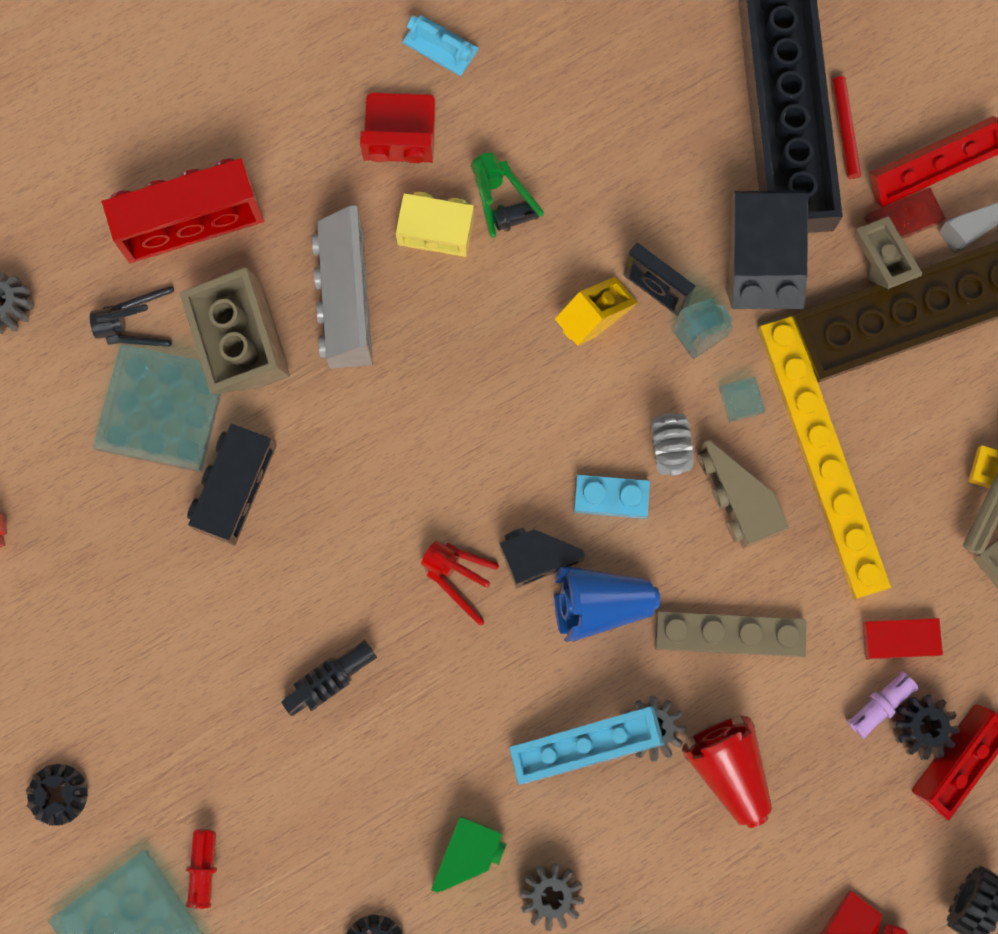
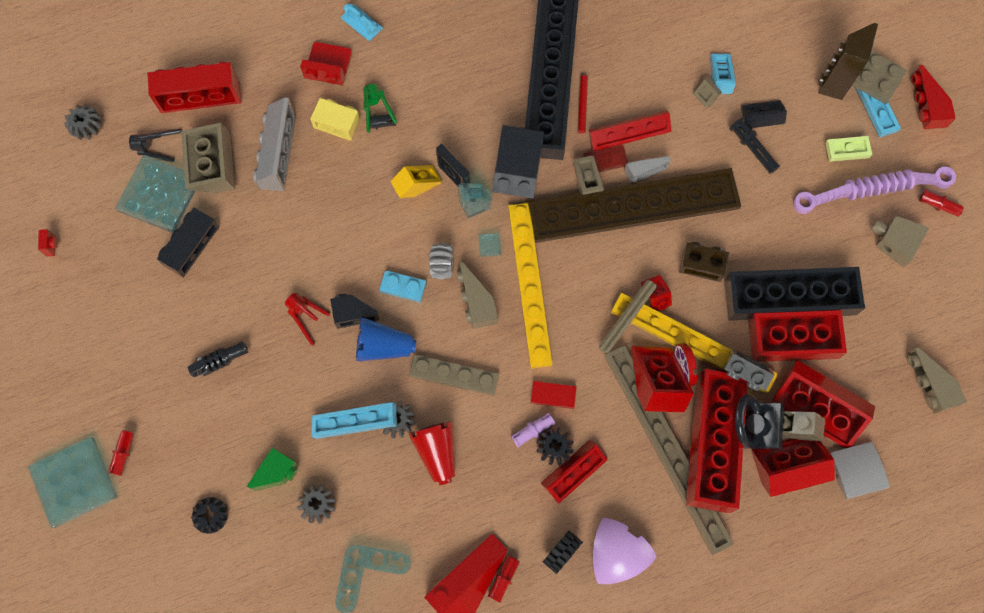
camera: 10 degrees right, 5 degrees down
(74, 794) = (59, 398): black gear -> none

